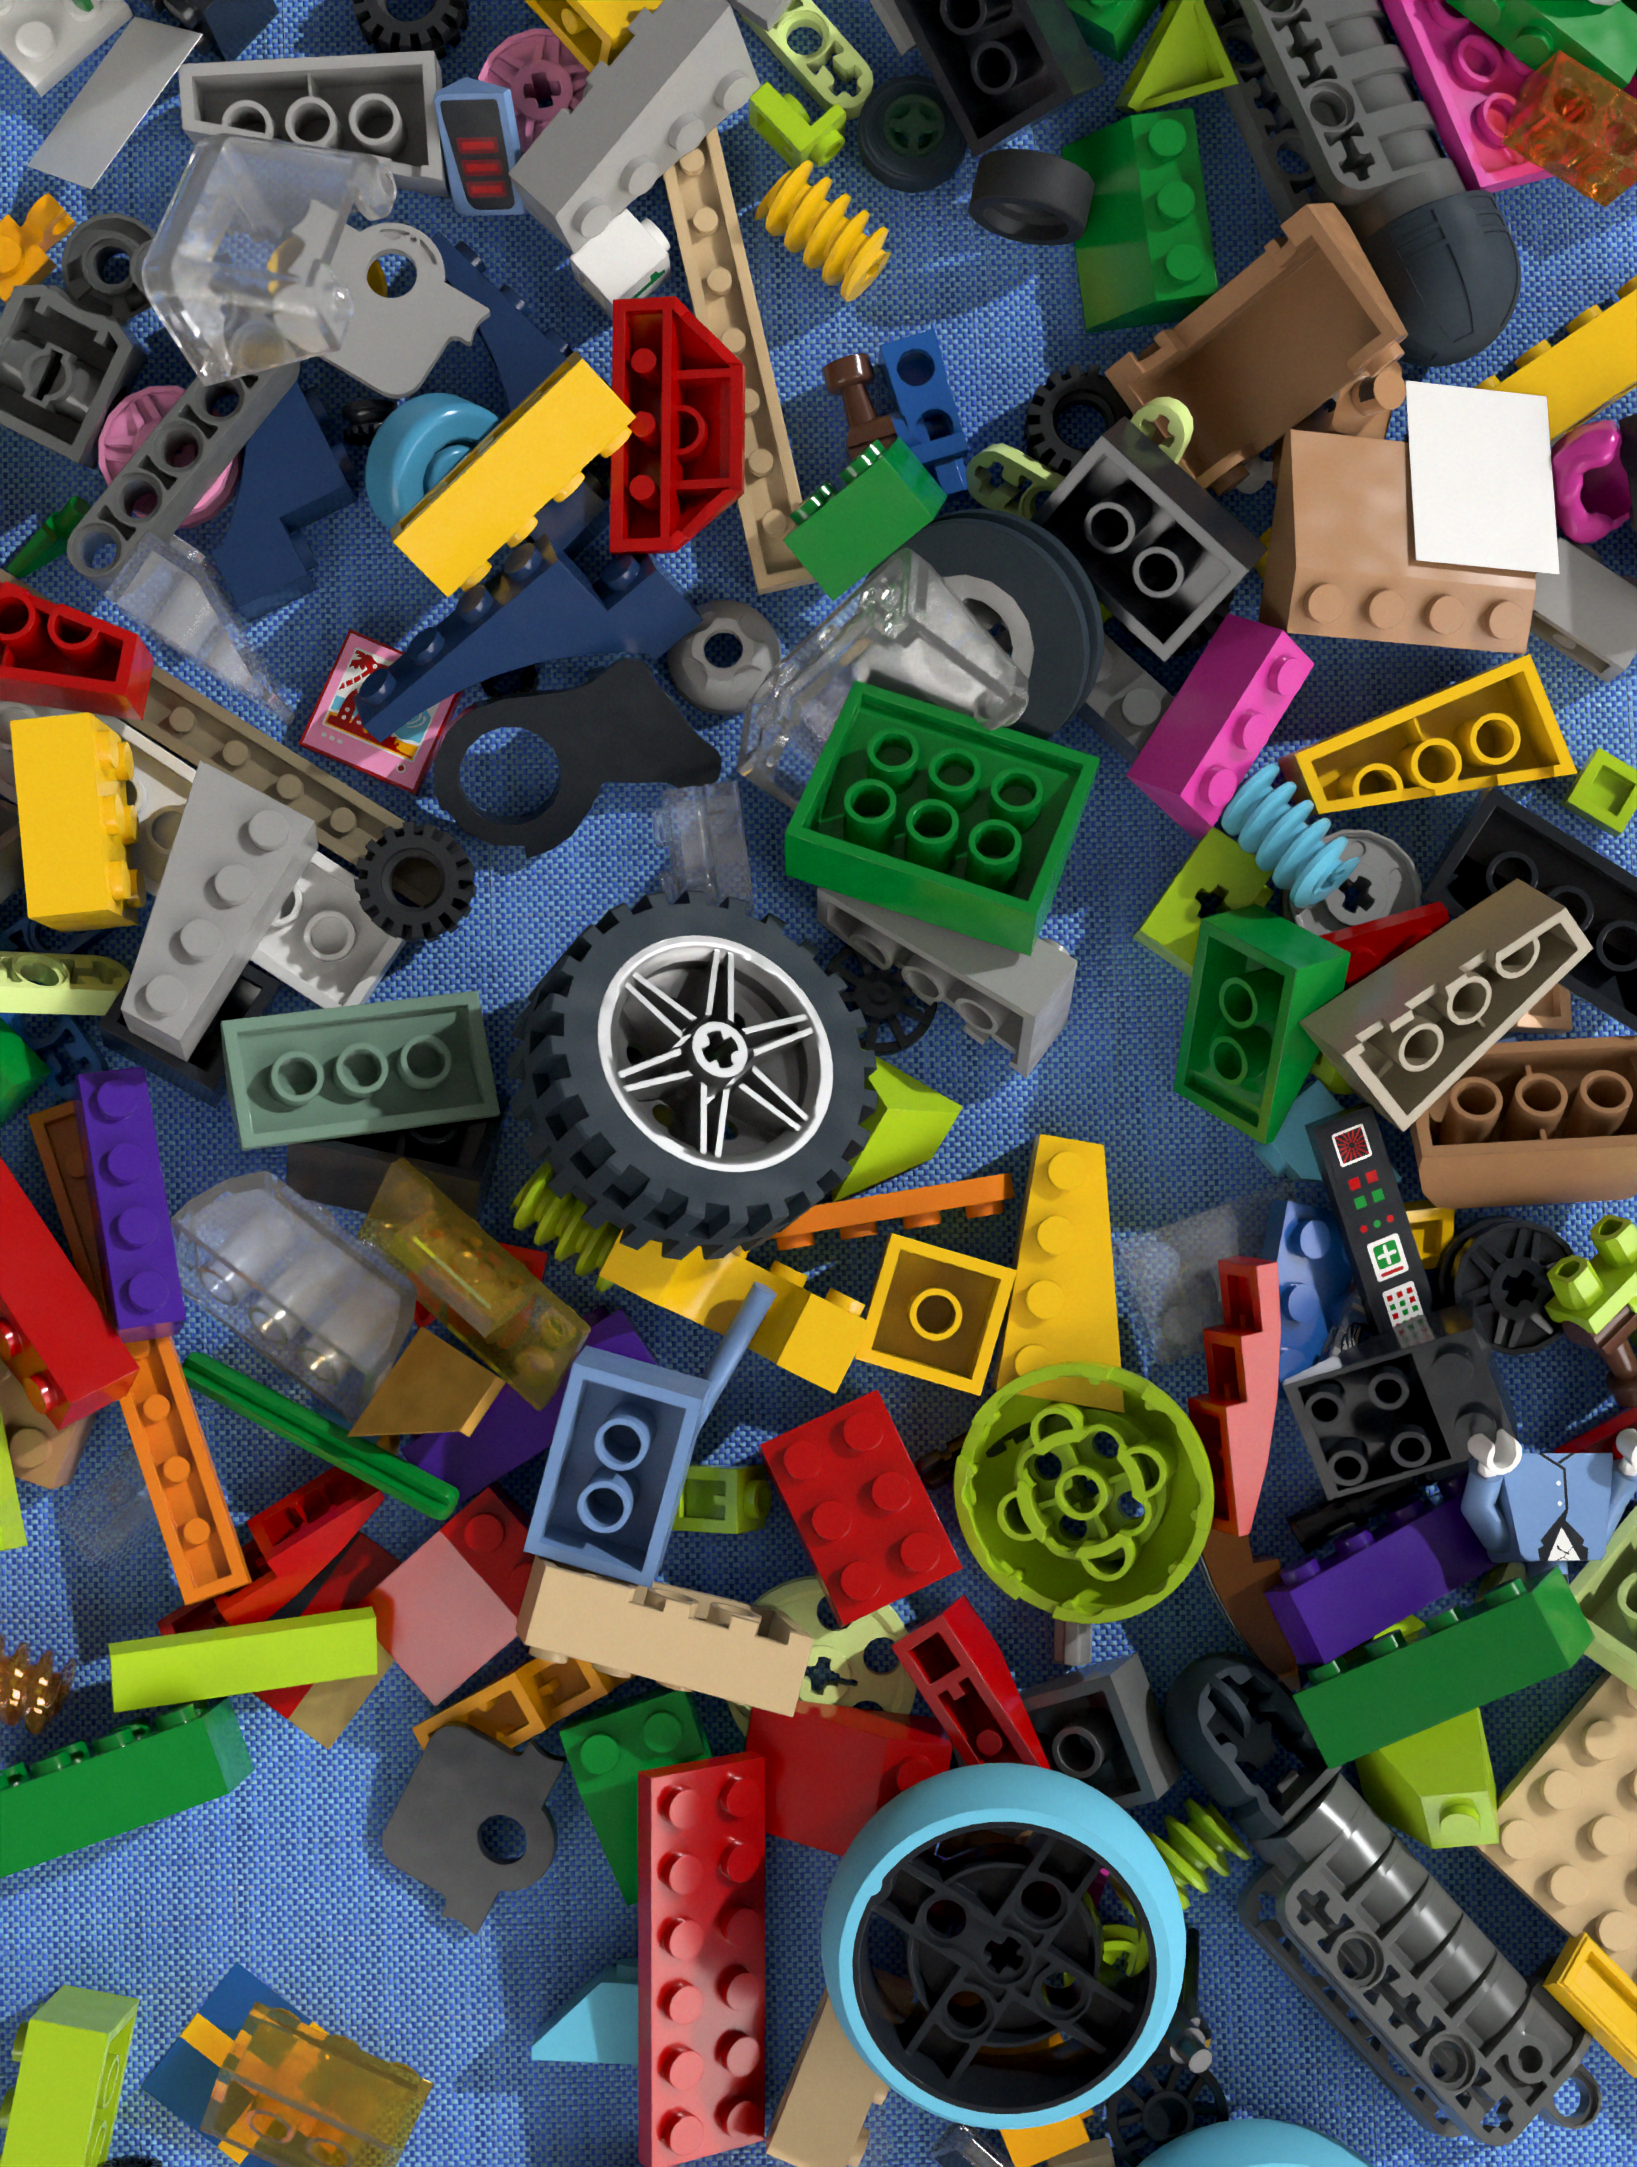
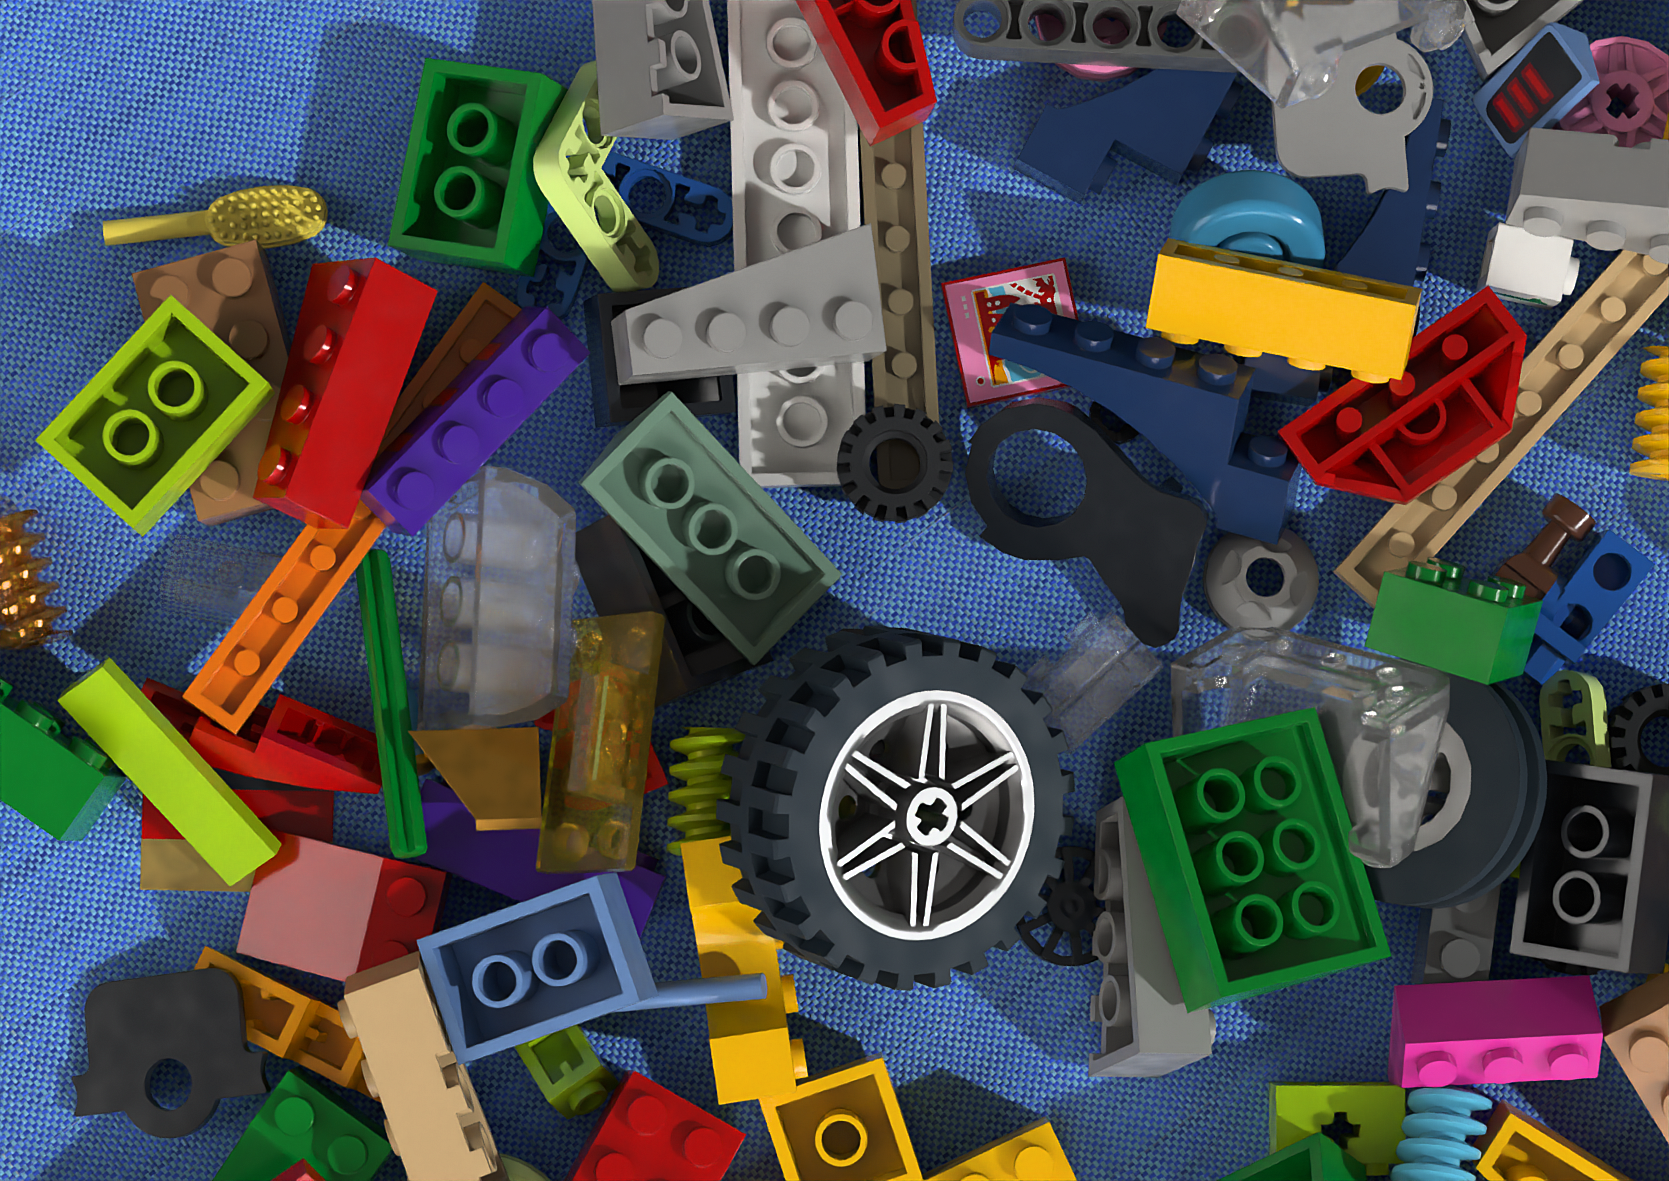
camera: 55 degrees right, 0 degrees up
(76, 823) = (749, 160): yellow brick -> none
(176, 600) = (986, 114): clear slope -> none
(365, 419) = (1247, 150): black bush -> none
(903, 1129) = (976, 1006): lime slope -> none
(916, 1207) = (918, 1060): orange plate -> none

